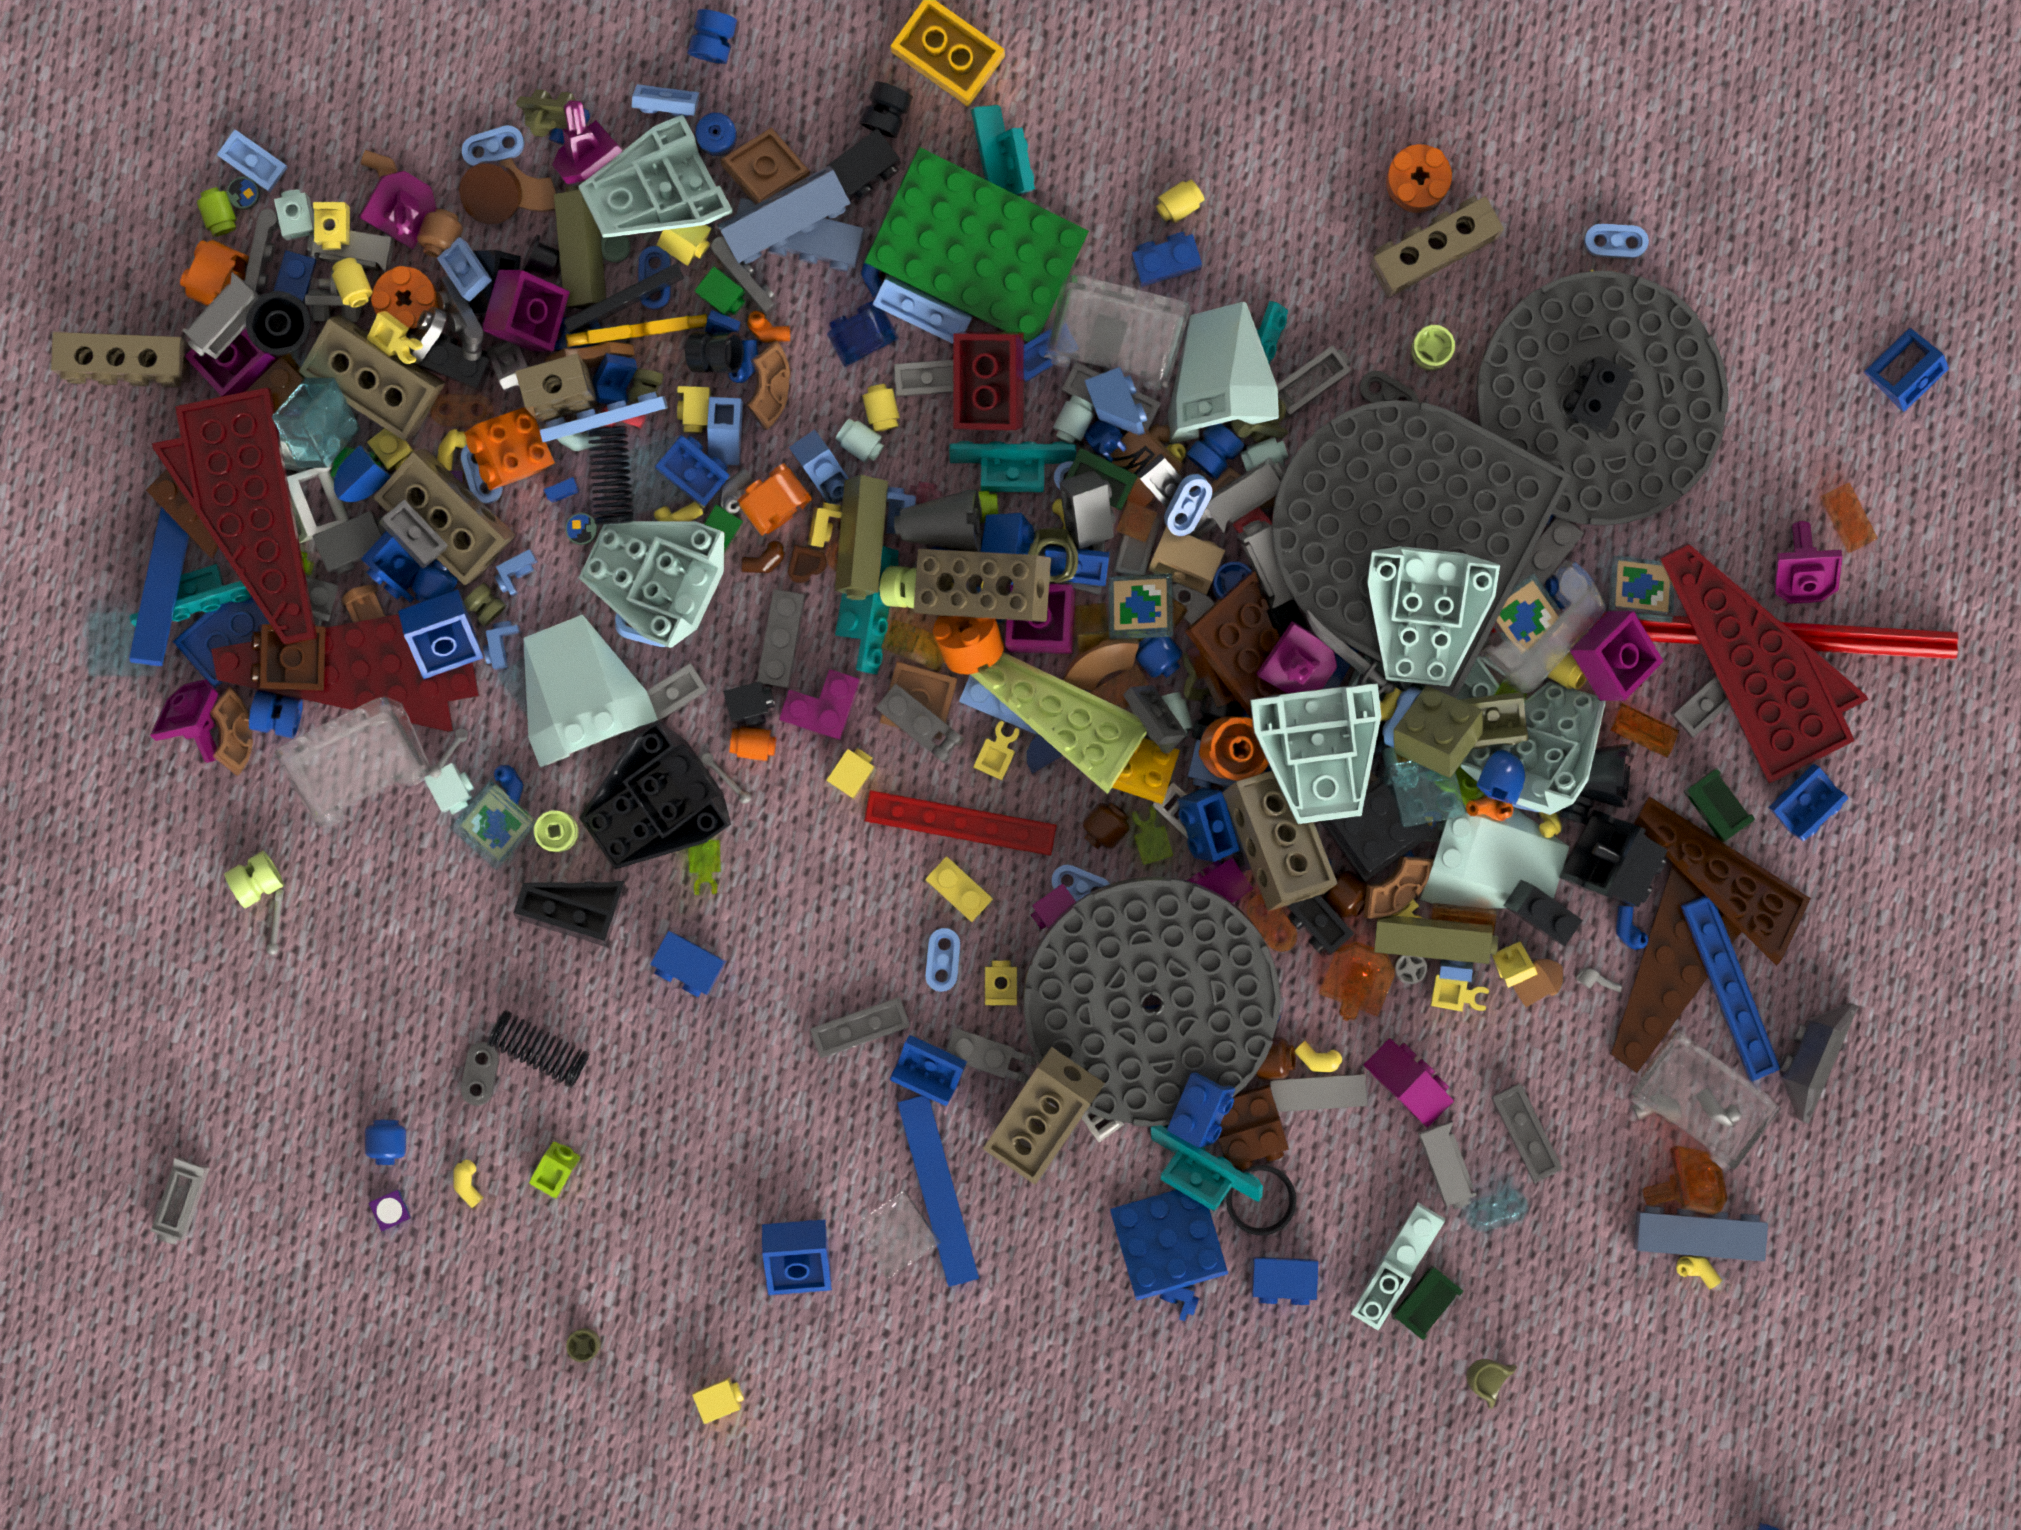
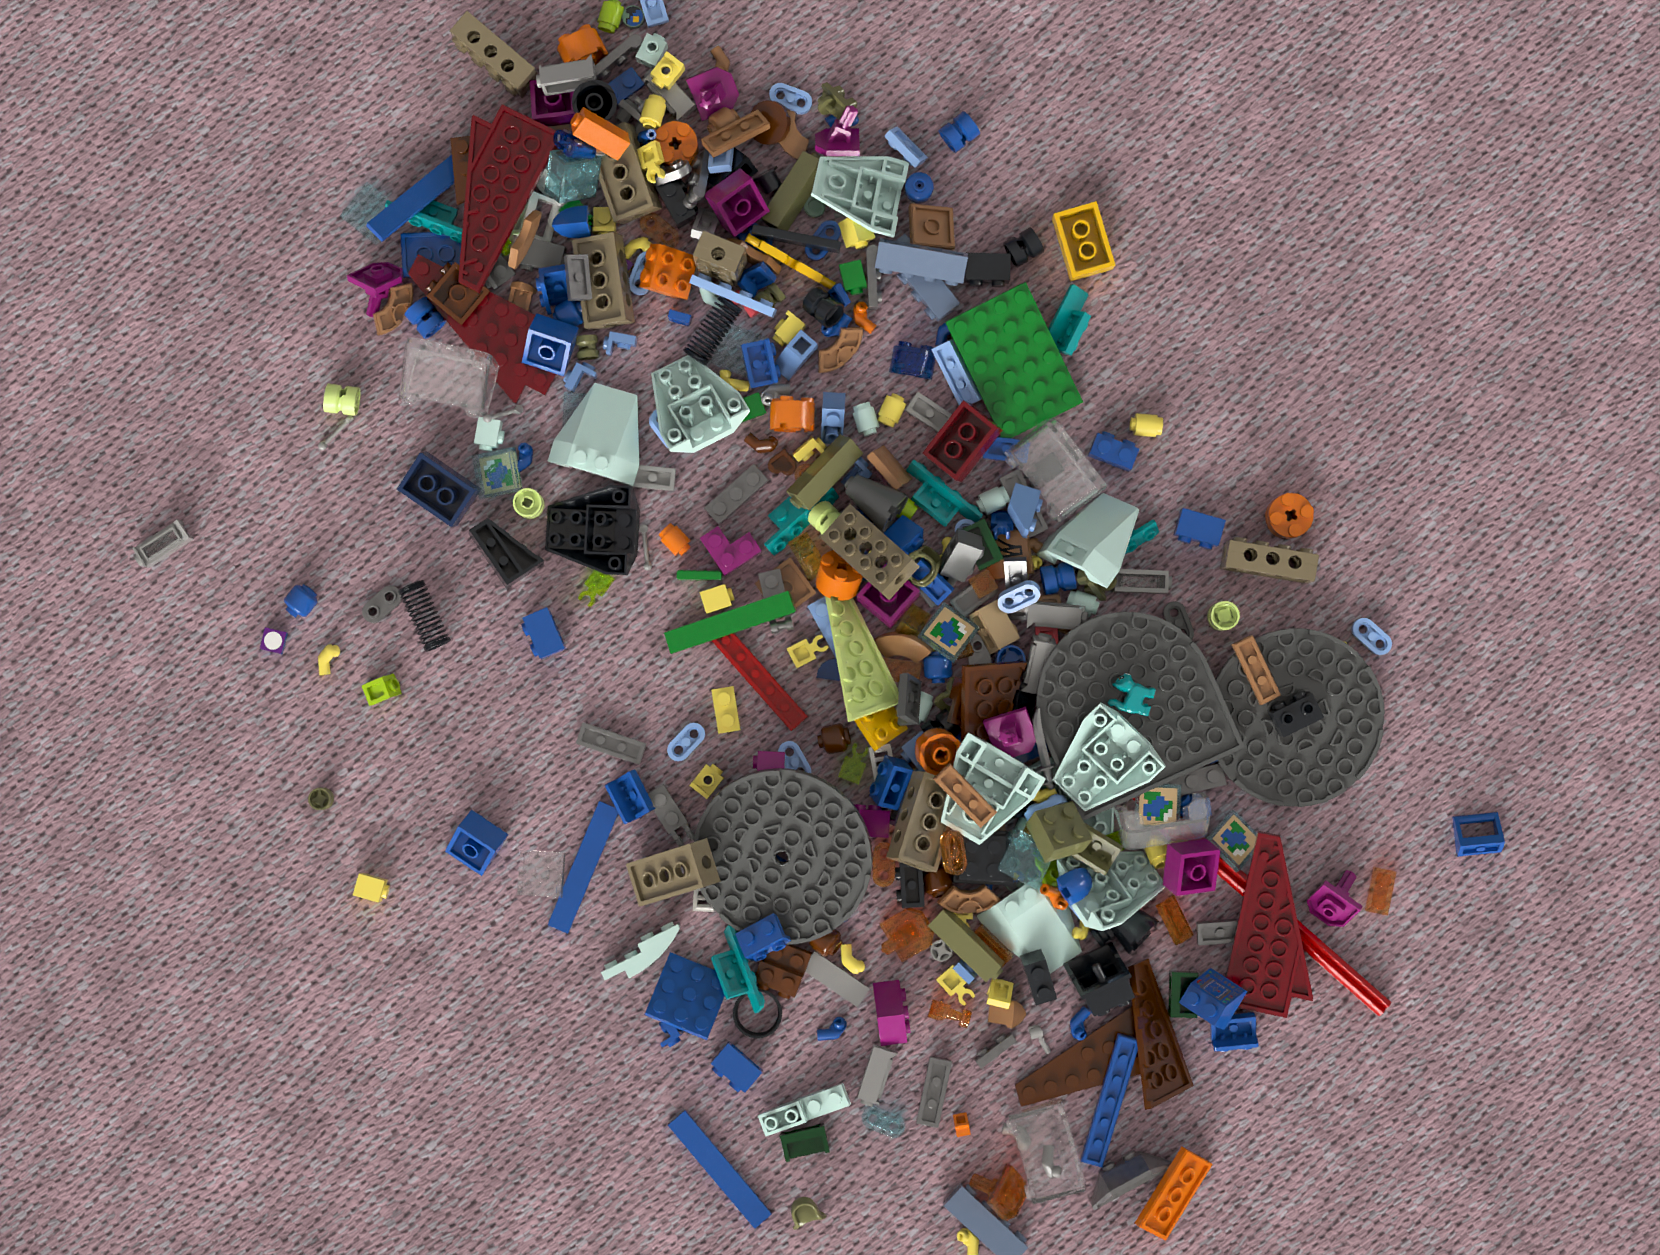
camera: 25 degrees right, 0 degrees up
(295, 386) = (574, 146): none -> clear blue piece
(312, 353) = (600, 133): none -> orange brick
(319, 537) = (525, 239): none -> medium nougat tile
(365, 316) = (646, 136): none -> blue arm
(442, 894) = (438, 489): none -> dark blue brick
(463, 234) = (735, 133): none -> medium nougat tile
(581, 529) = (673, 347): tile -> none
(749, 703) = (690, 516): black brick -> none
(811, 762) = (699, 575): none -> green tile
(887, 787) = (730, 622): none -> green tile
(929, 474) = (889, 467): none -> medium nougat tile
(1086, 1221) = (651, 949): none -> light aqua slope
(1301, 772) = (964, 795): none -> medium nougat tile
(1329, 270) = (1199, 528): none -> blue brick
(1338, 845) = (953, 851): none -> clear orange plate
(1355, 1407) = (719, 1169): none -> blue tile
(1362, 1151) = (834, 1031): none -> blue arm
(1405, 516) = (1135, 695): none -> teal animal
(1464, 1035) = (941, 1010): none -> clear orange leg
(1516, 379) = (1256, 669): none -> medium nougat tile
(1554, 1044) = (1001, 1044): none -> flat silver plate
(1586, 1145) = (961, 1124): none -> orange piece
(1755, 782) = (1213, 998): none -> blue slope
(1882, 1035) = (1173, 1193): none -> orange tile

